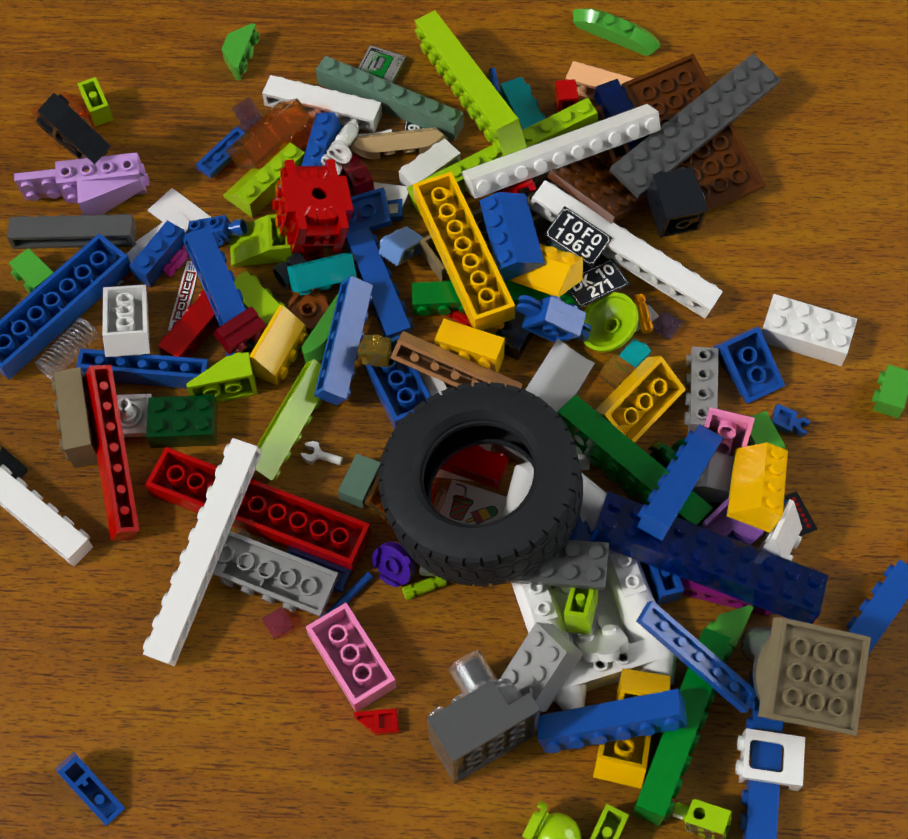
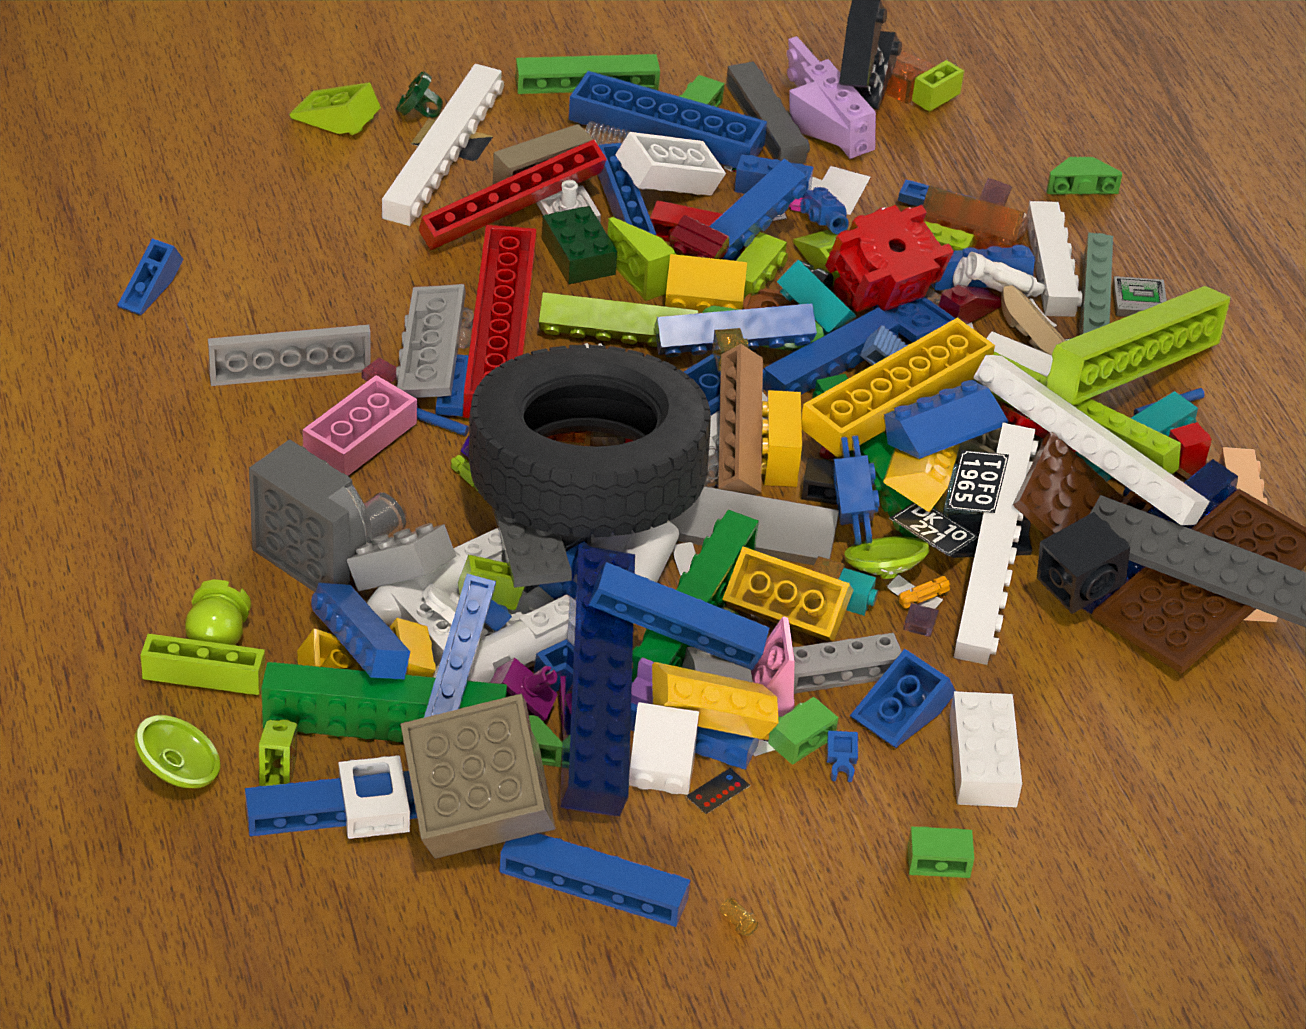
camera: 65 degrees right, 20 degrees down
(202, 552) = (429, 280): white brick -> none
(243, 694) = (288, 355): none -> light grey arch
(607, 615) = (497, 616): none -> blue slope
(695, 612) = (532, 686): none -> magenta brick

